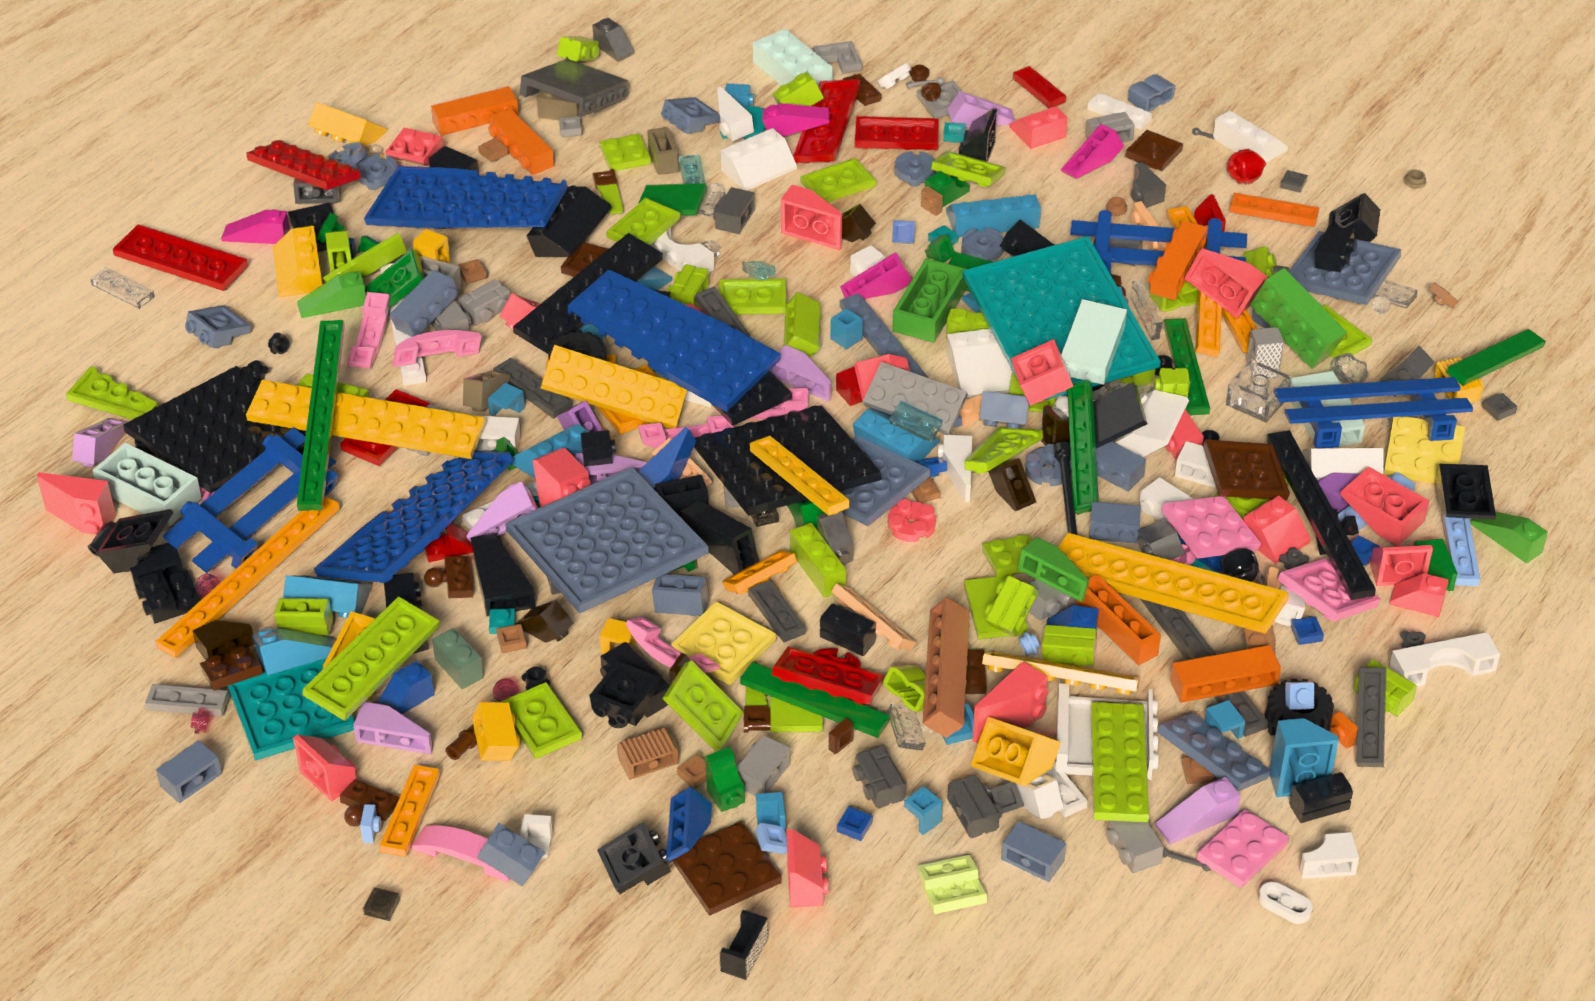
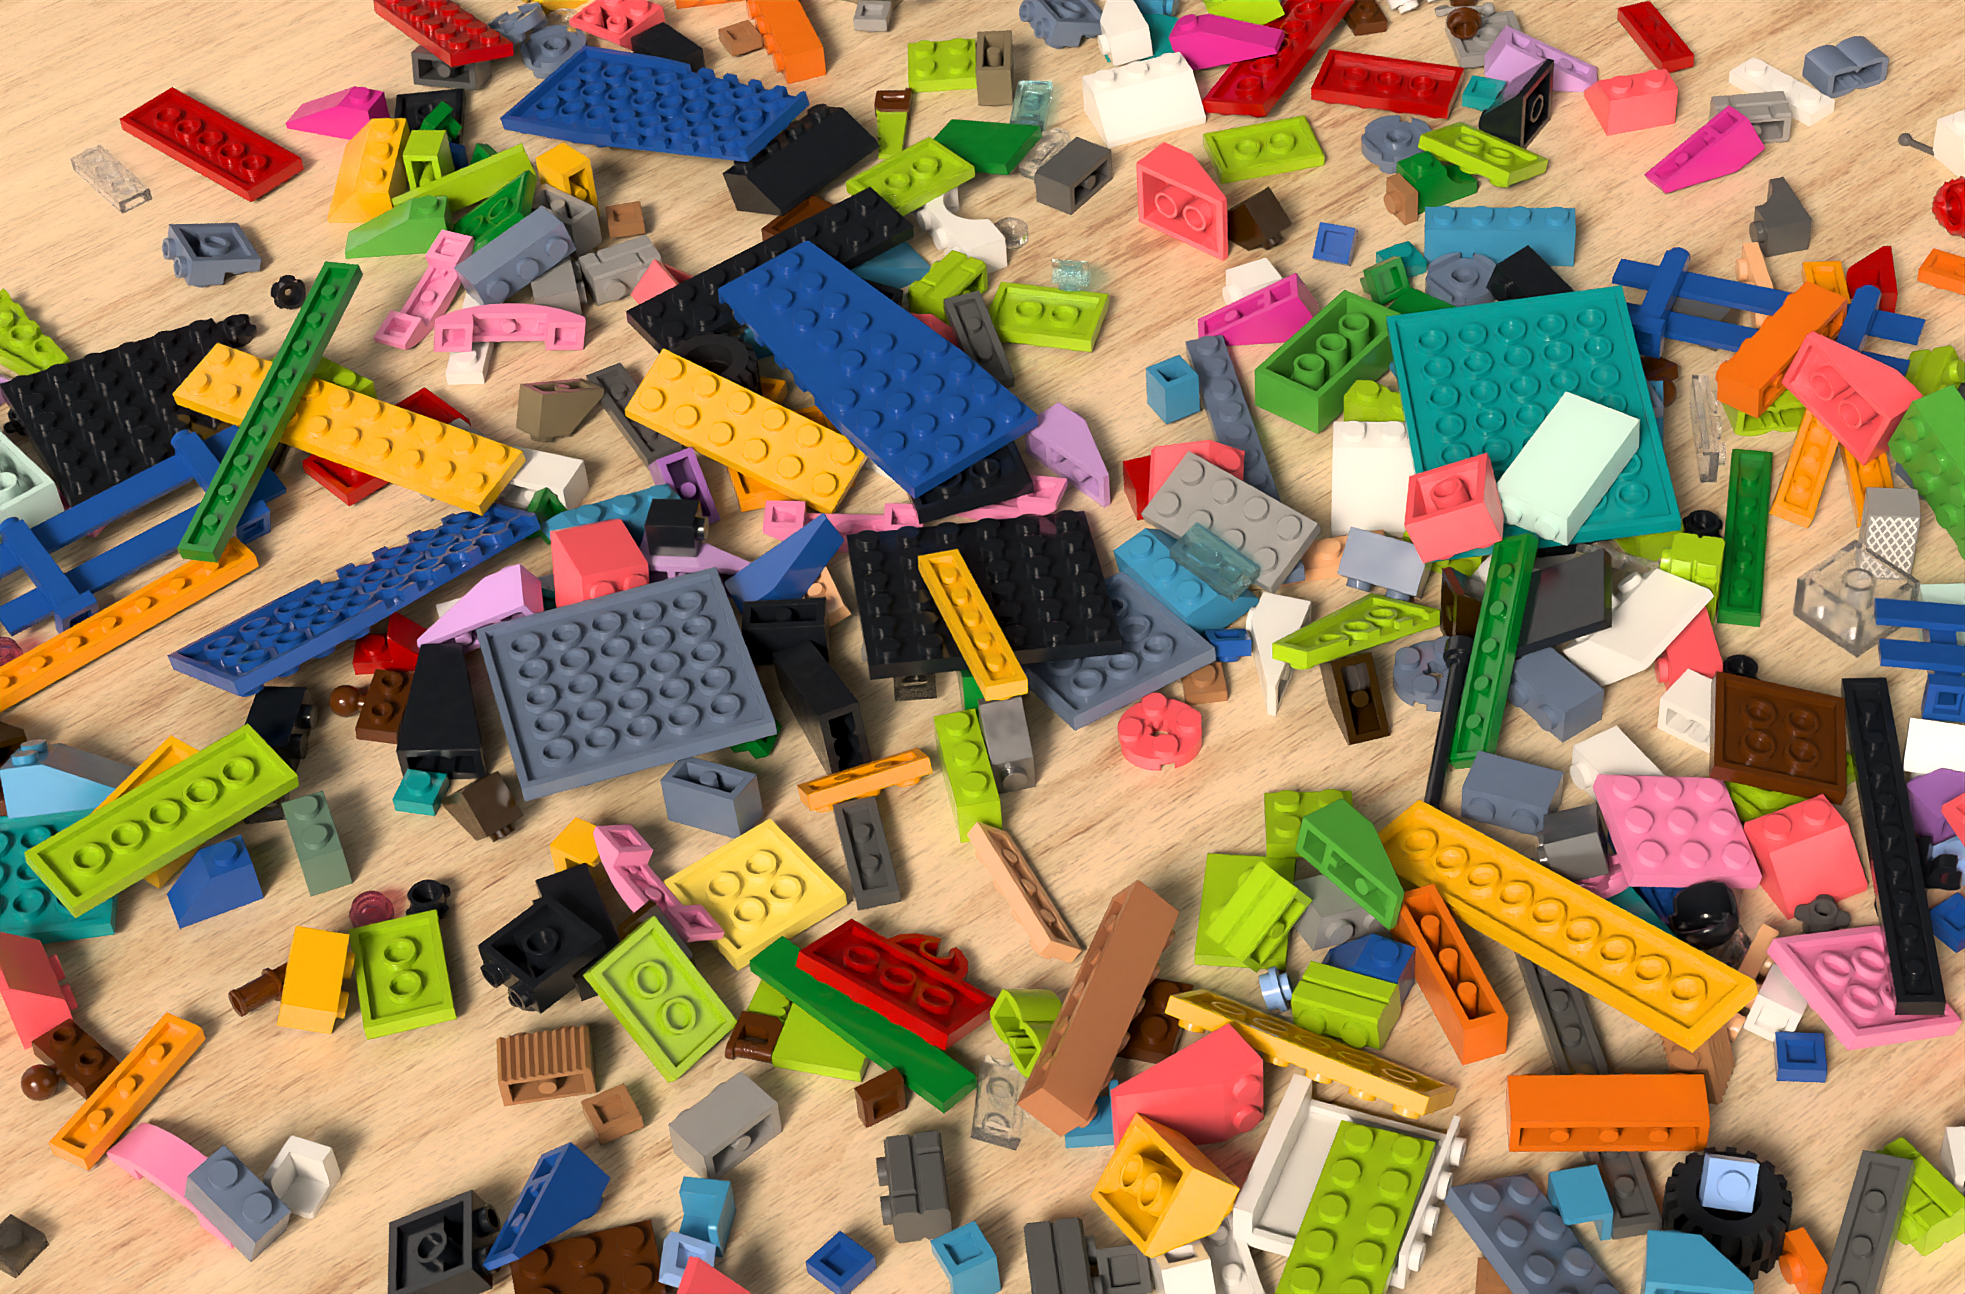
camera: 20 degrees right, 0 degrees up
(304, 615) = (112, 729): lime brick -> none
(342, 594) = (166, 701): dark azure slope -> none
(370, 823) = (52, 1101): light blue plate -> none
(388, 728) = (152, 939): lavender slope -> none
(506, 397) = (582, 424): dark azure panel -> none
(511, 638) = (418, 824): medium nougat plate -> none
(724, 780) = (644, 1139): green arch -> none
(802, 324) = (1104, 374): lime brick -> none
(847, 629) = (969, 907): black brick -> none
(1117, 206) = (1717, 247): medium nougat plate -> none
(1154, 150) = (1817, 161): reddish brown plate -> none

